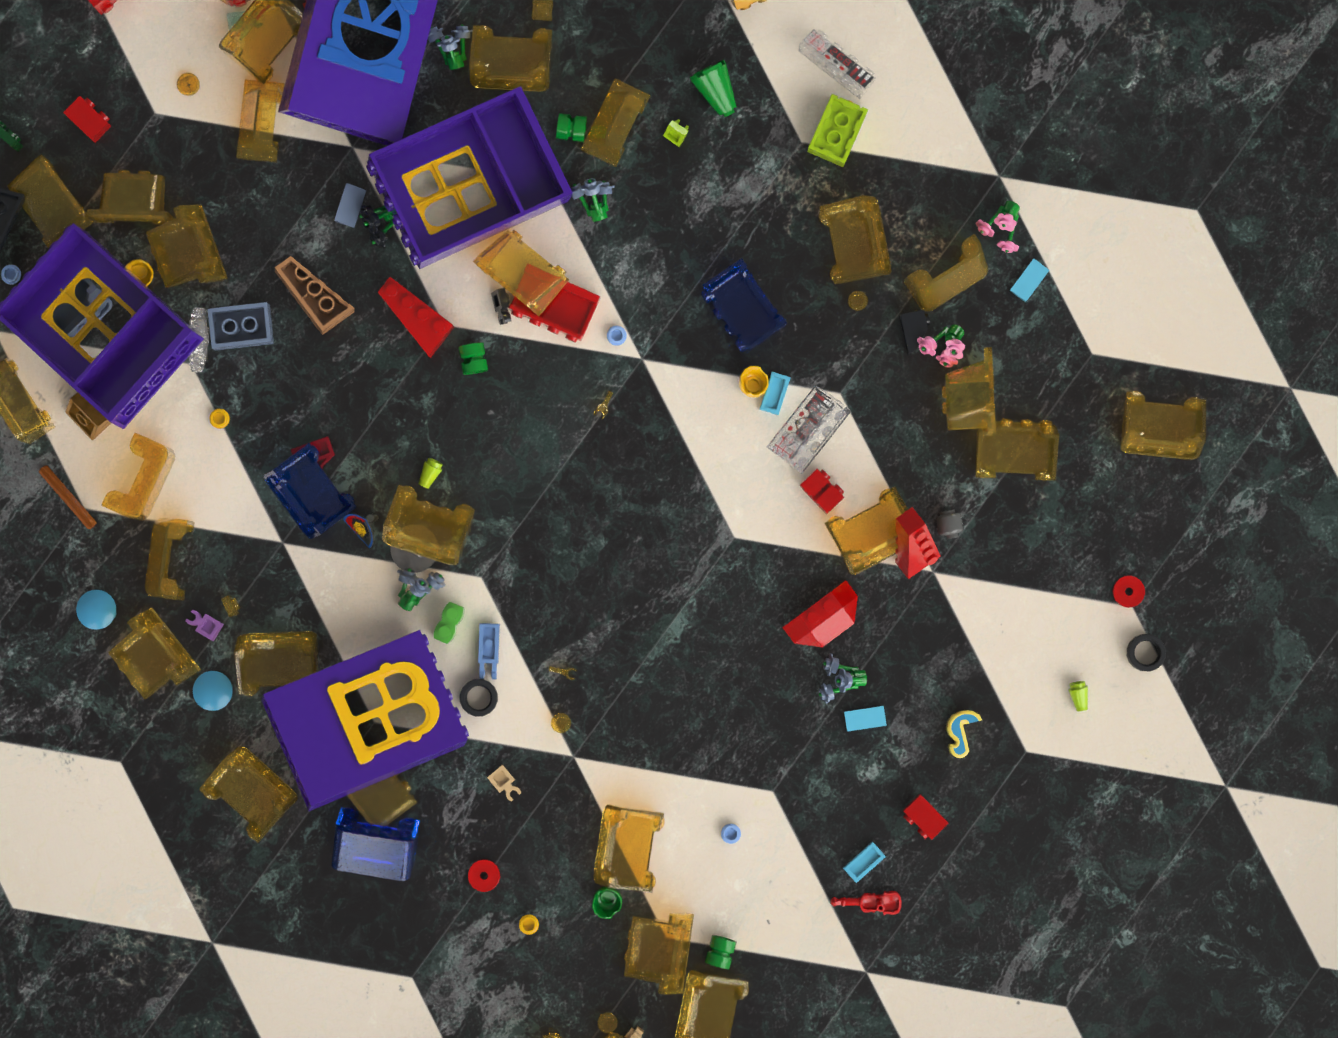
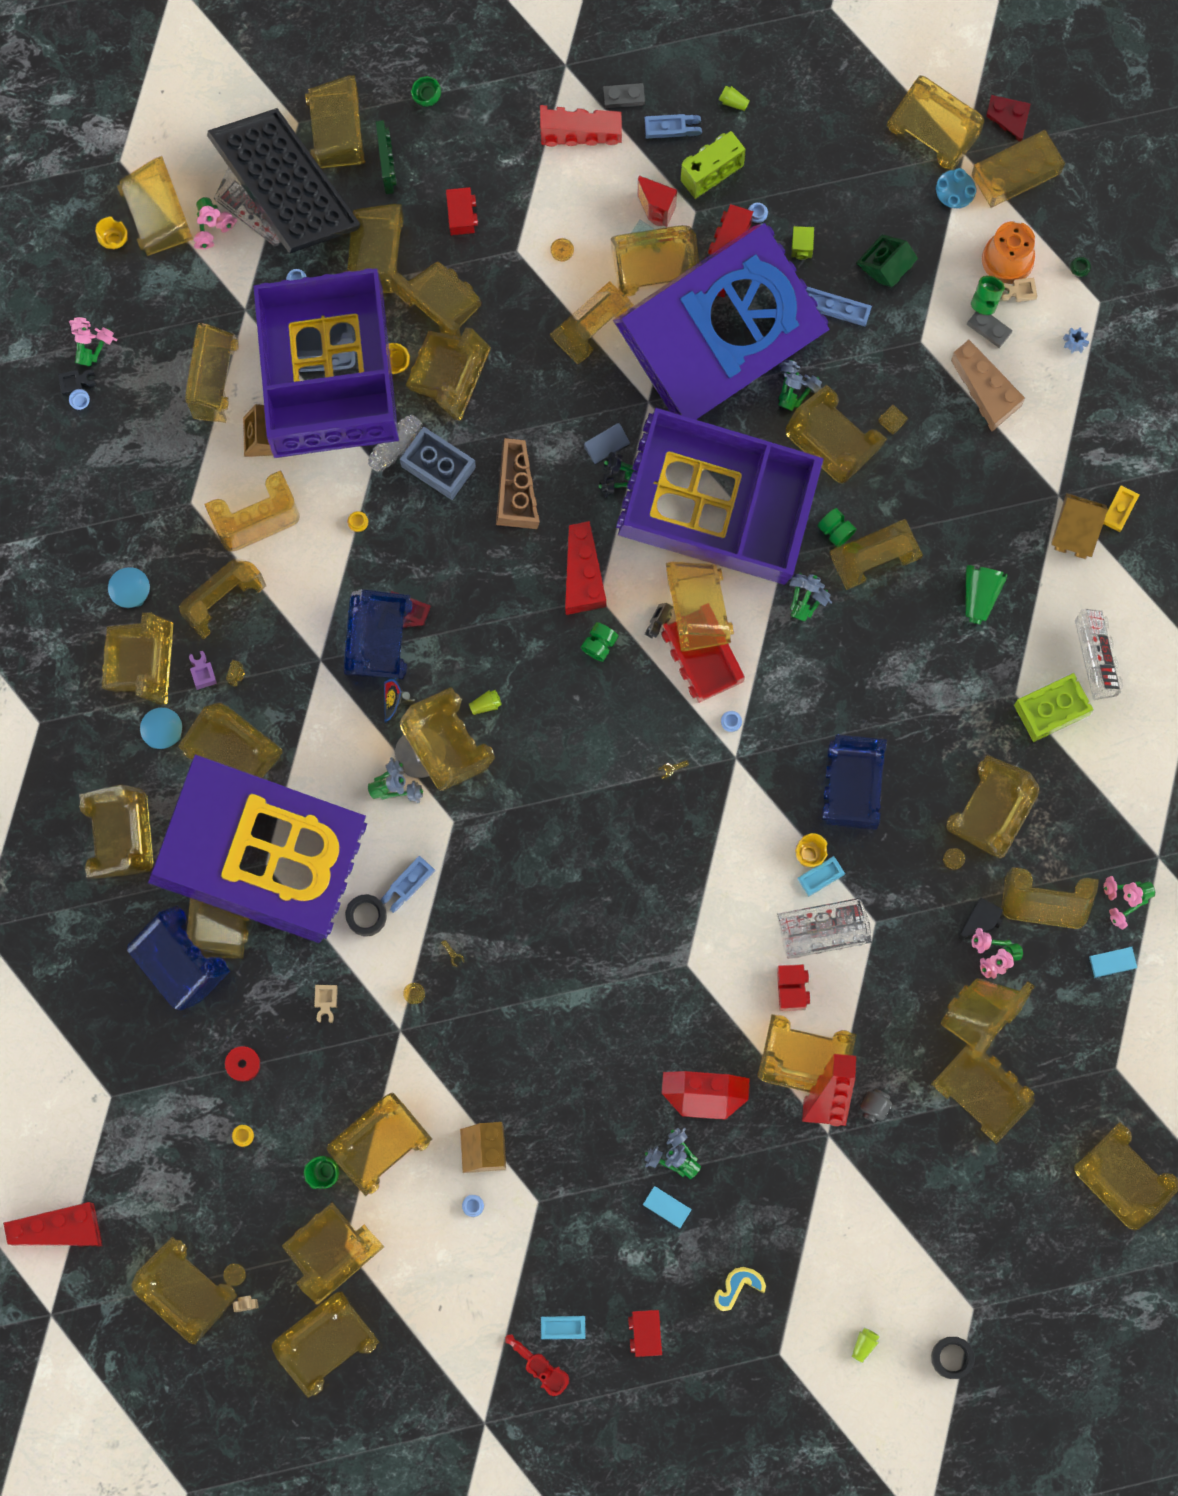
camera: 45 degrees right, 10 degrees down
(67, 497) = (185, 483): dark orange axle -> none
(451, 617) = (389, 836): bright green brick -> none
(676, 133) = (918, 601): lime tile -> none
(704, 789) = (483, 1147): none -> pearl gold slope
(720, 952) = (378, 1297): green wheel -> none
(1122, 598) = (991, 1293): red piece -> none

